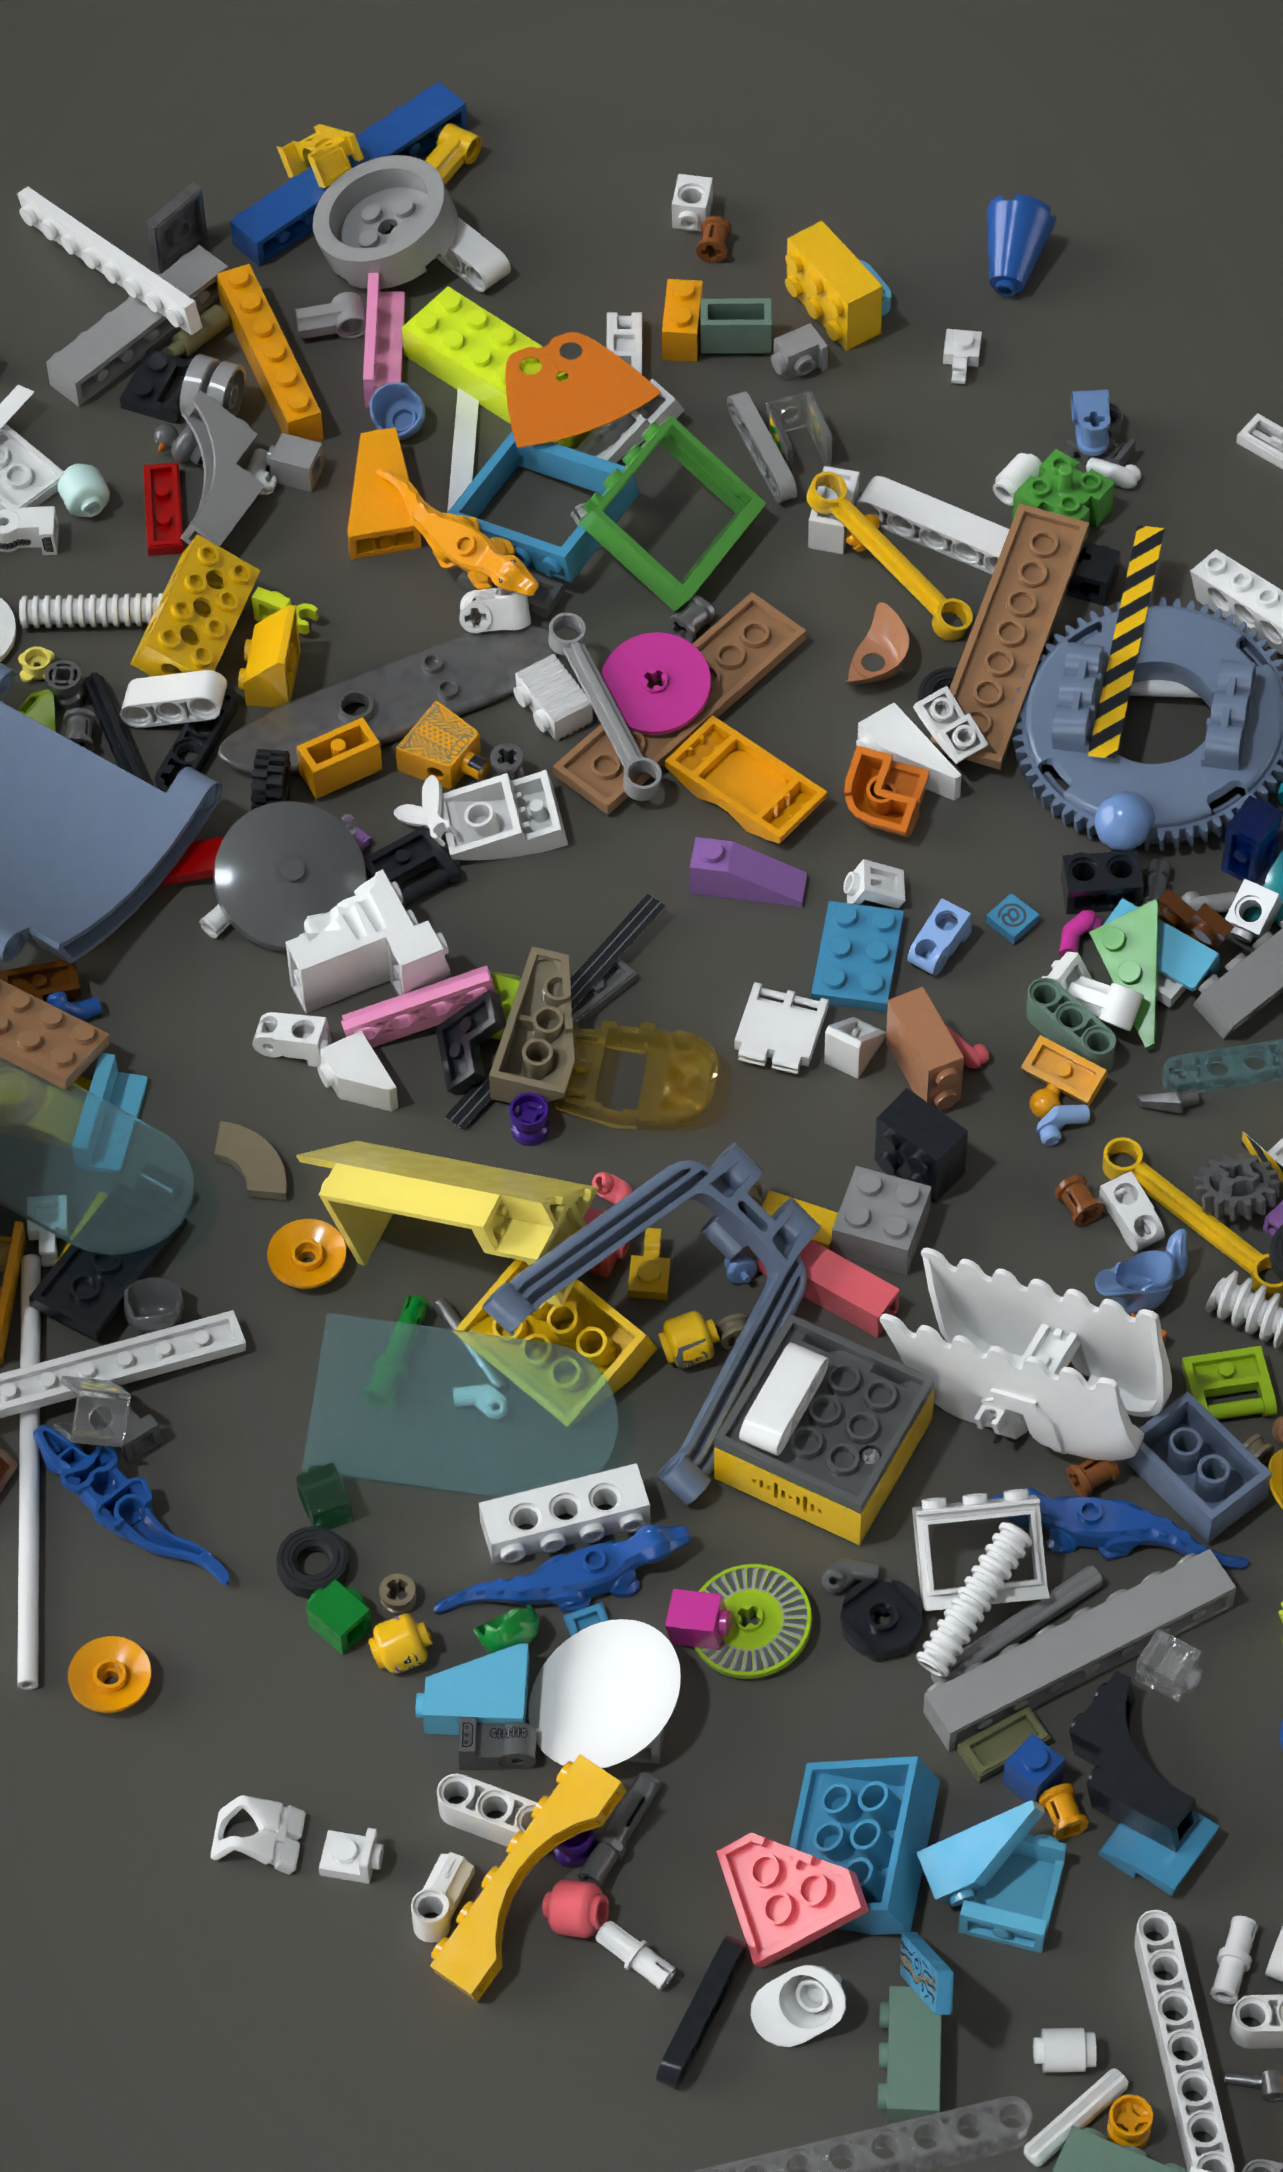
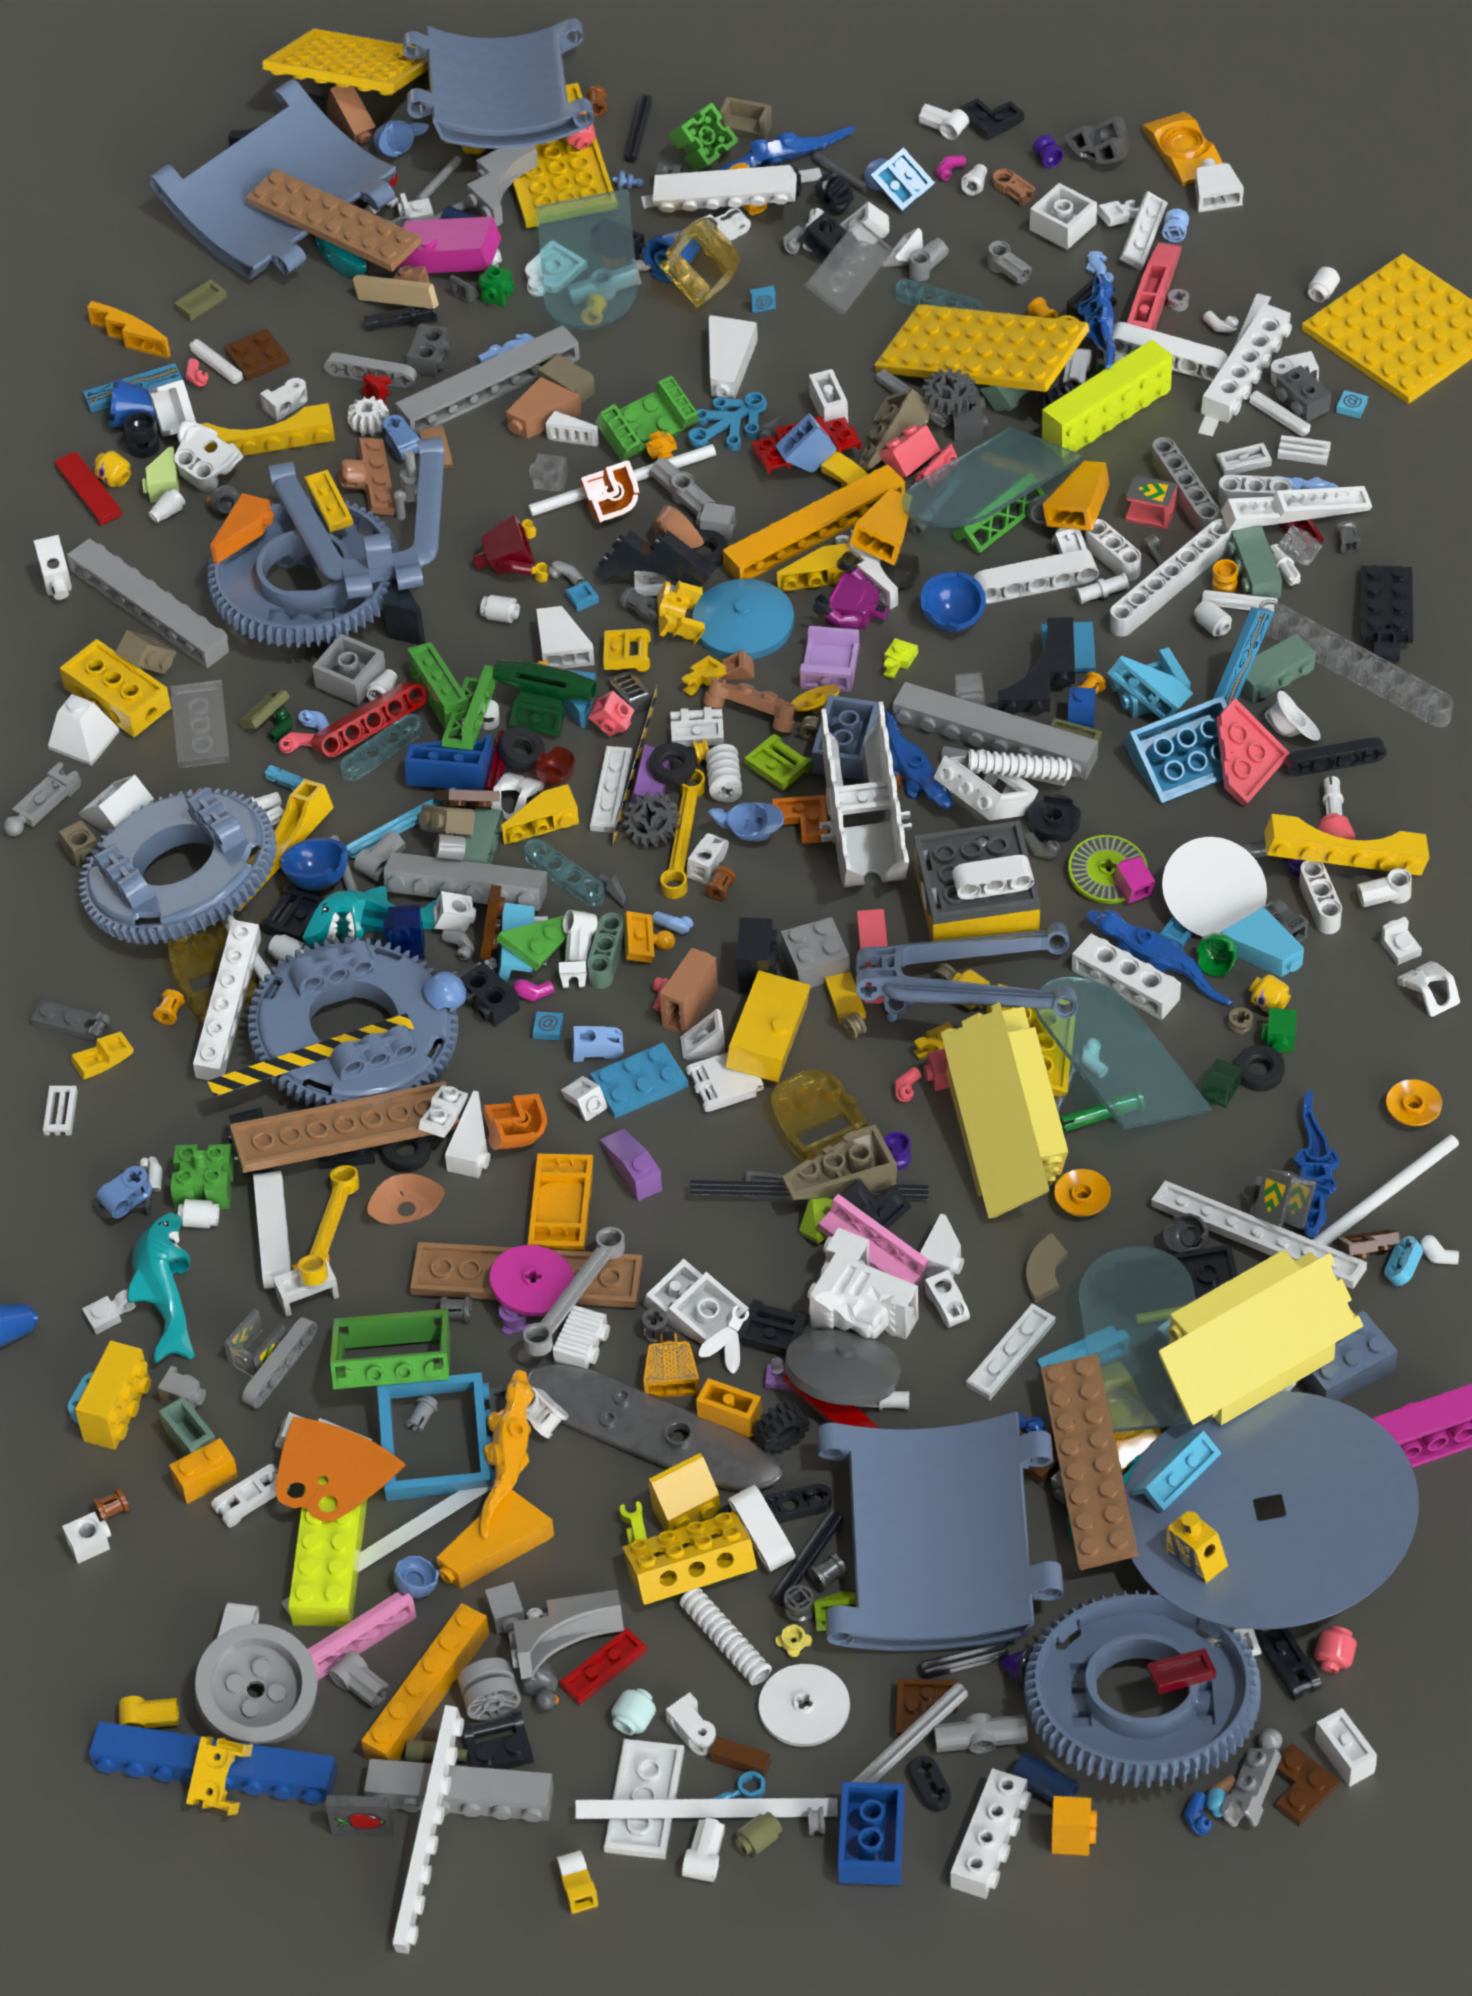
camera: 125 degrees left, 5 degrees down
(180, 1061) = (1010, 1352): none -> white tile
(805, 1094) = (768, 1026): none -> yellow brick
(975, 395) = (153, 1282): none -> teal piece

